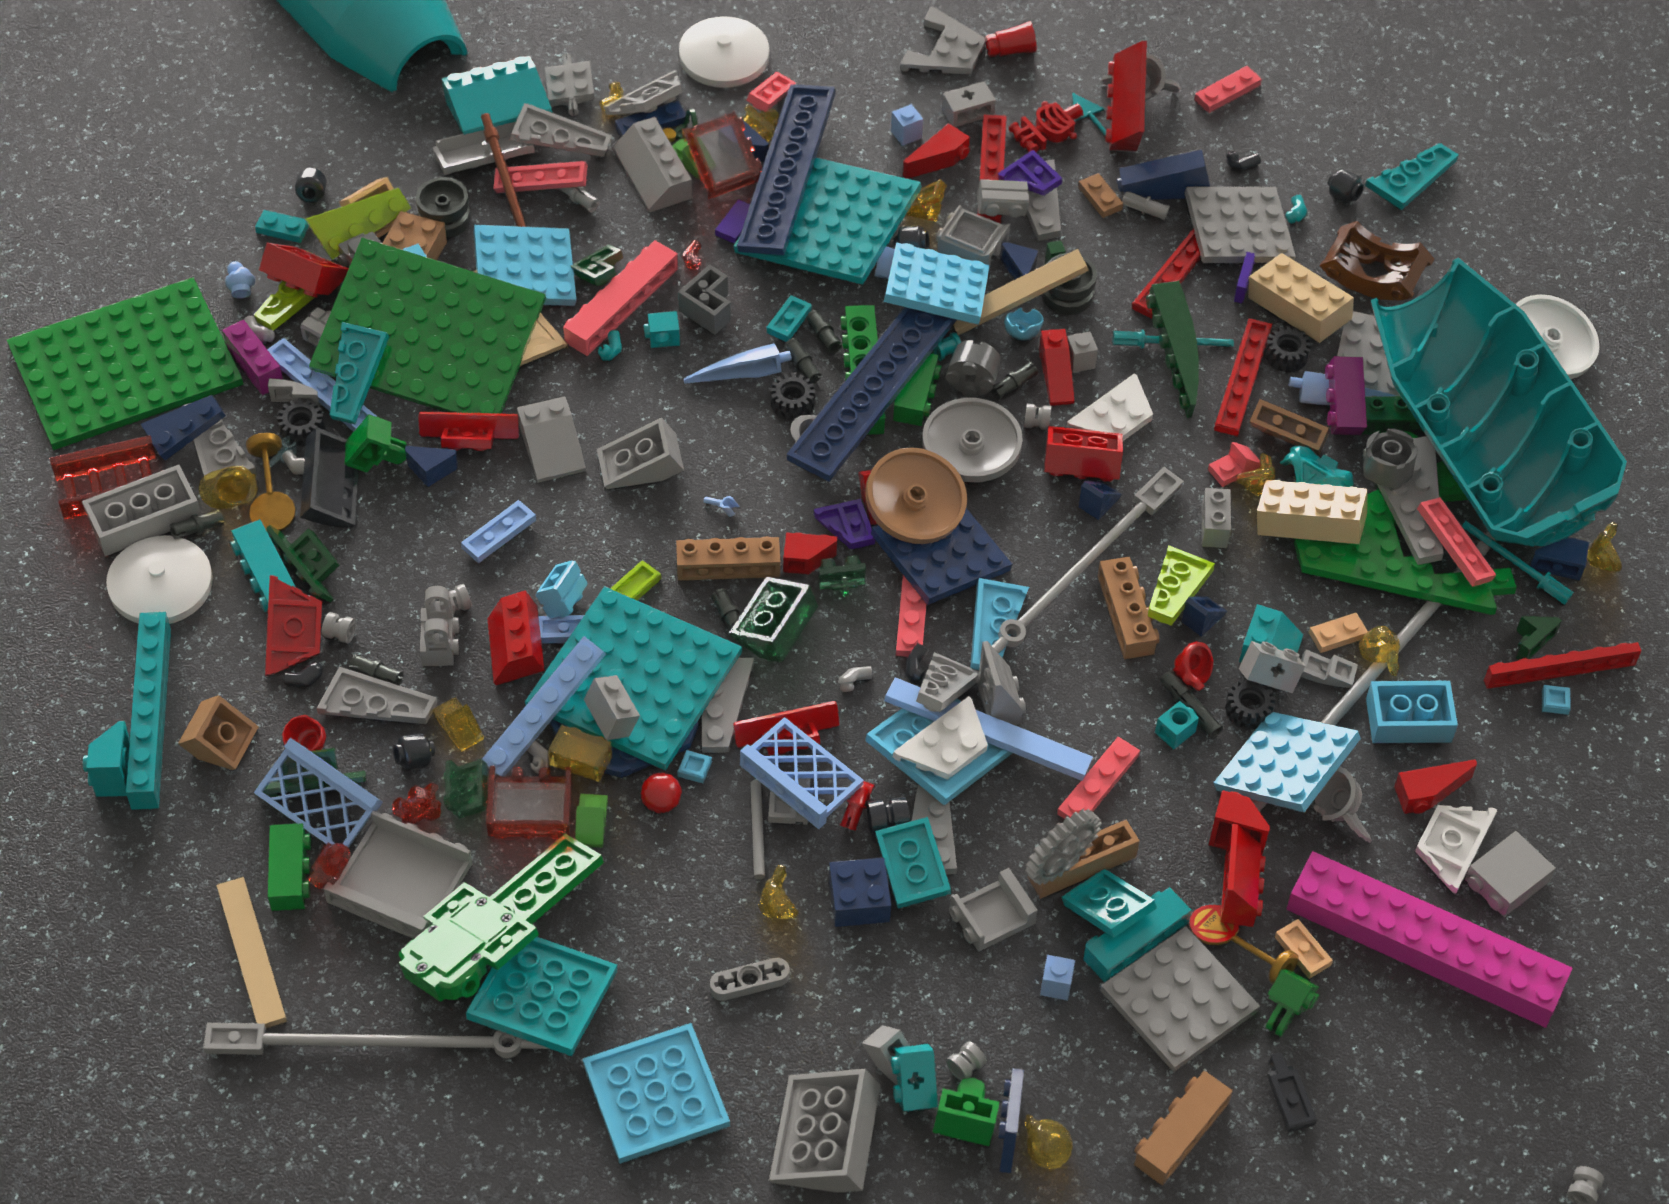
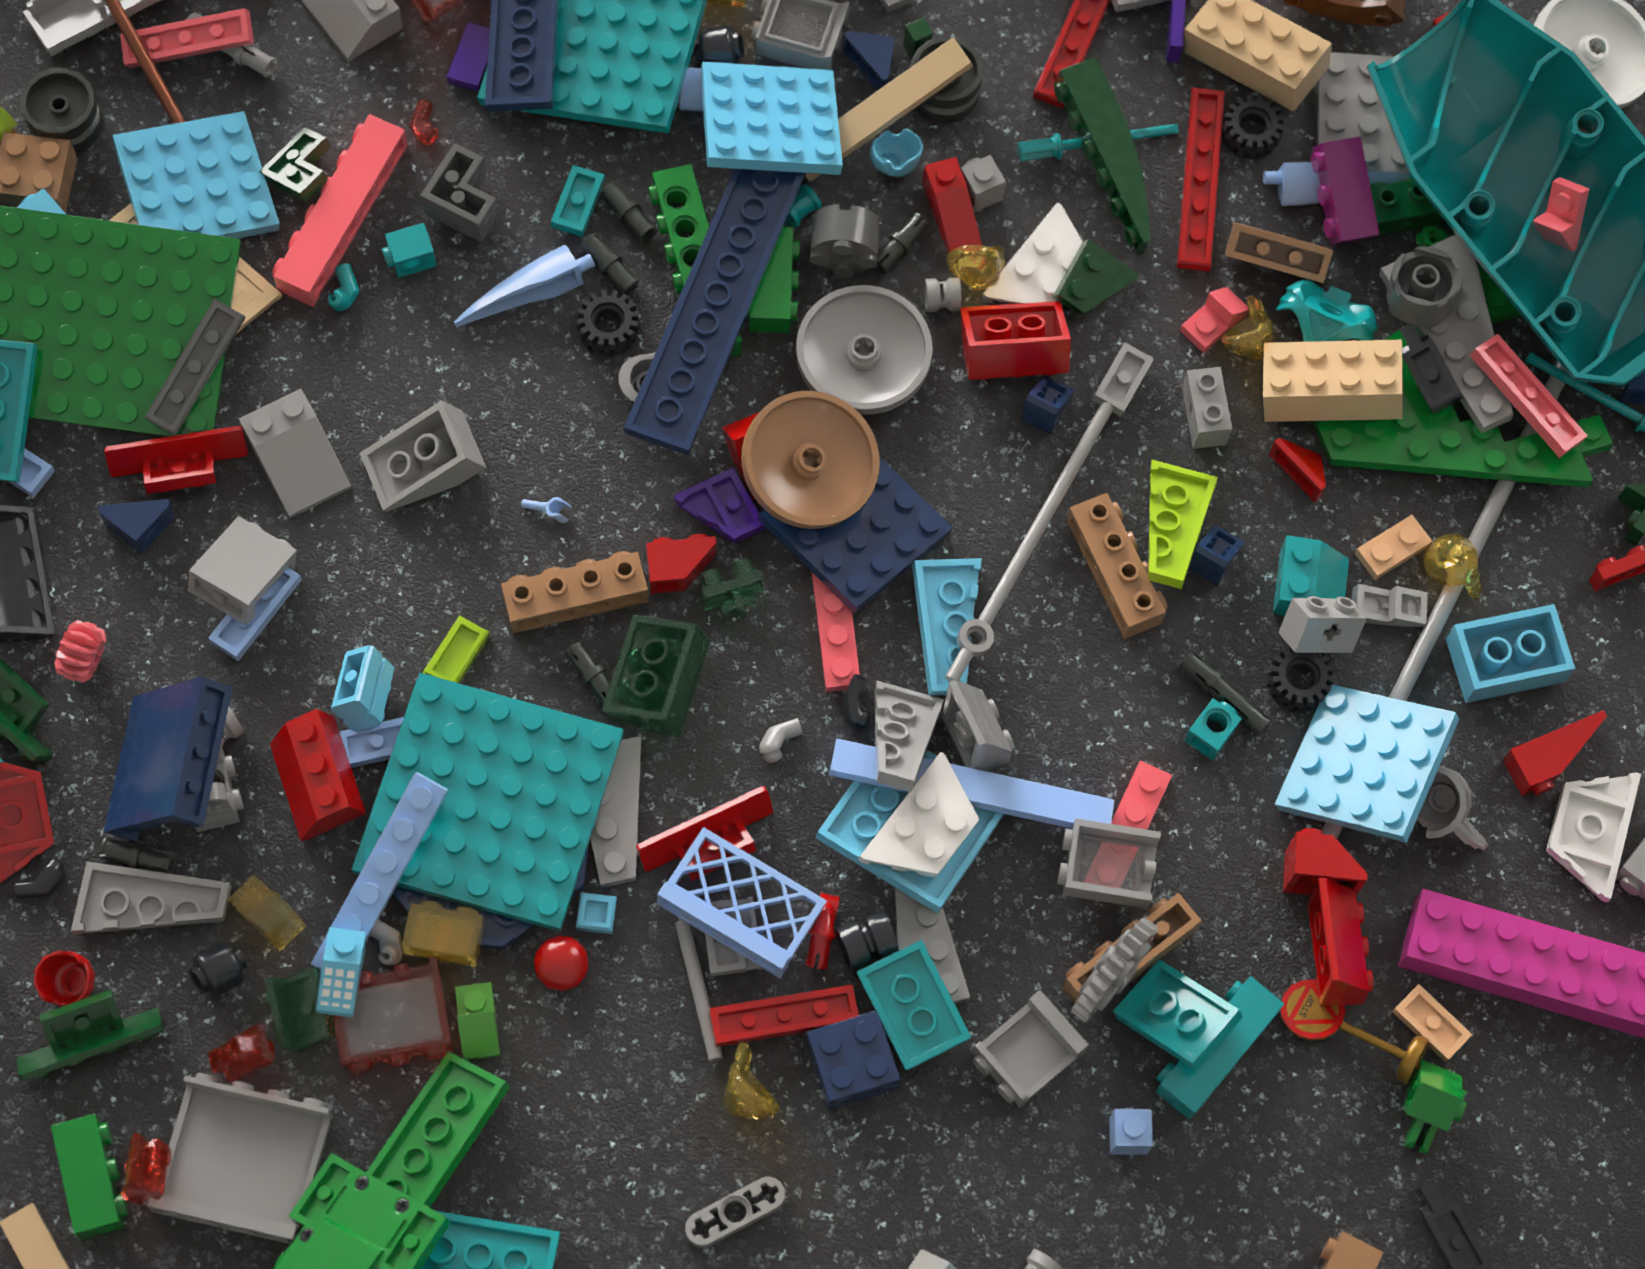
camera: 15 degrees left, 15 degrees up
(324, 773) = (111, 1036): light blue fence -> none
(339, 627) = (71, 800): light grey wheel -> none
(369, 534) = (80, 651): none -> coral gear
(372, 444) = (52, 512): green brick -> none
(414, 601) = (168, 757): none -> dark blue panel
(493, 501) = (240, 569): none -> light grey panel
(494, 370) = (195, 367): none -> dark grey tile
(500, 759) = (341, 972): none -> medium azure slope
(611, 707) = (473, 867): light grey brick -> none
(810, 853) = (782, 1015): none -> red plate
(1066, 399) = (977, 265): none -> clear yellow hat
(1078, 787) = (1109, 863): none -> window
(1149, 423) = (1092, 278): none -> dark green wing
(1179, 998) = (1288, 1124): light grey plate -> none
(1194, 665) = (1219, 638): red hat -> none
(1278, 567) = (1301, 466): none -> red slope
(1386, 516) = (1429, 370): none -> black hinge
(1501, 429) = (1564, 214): none -> coral slope

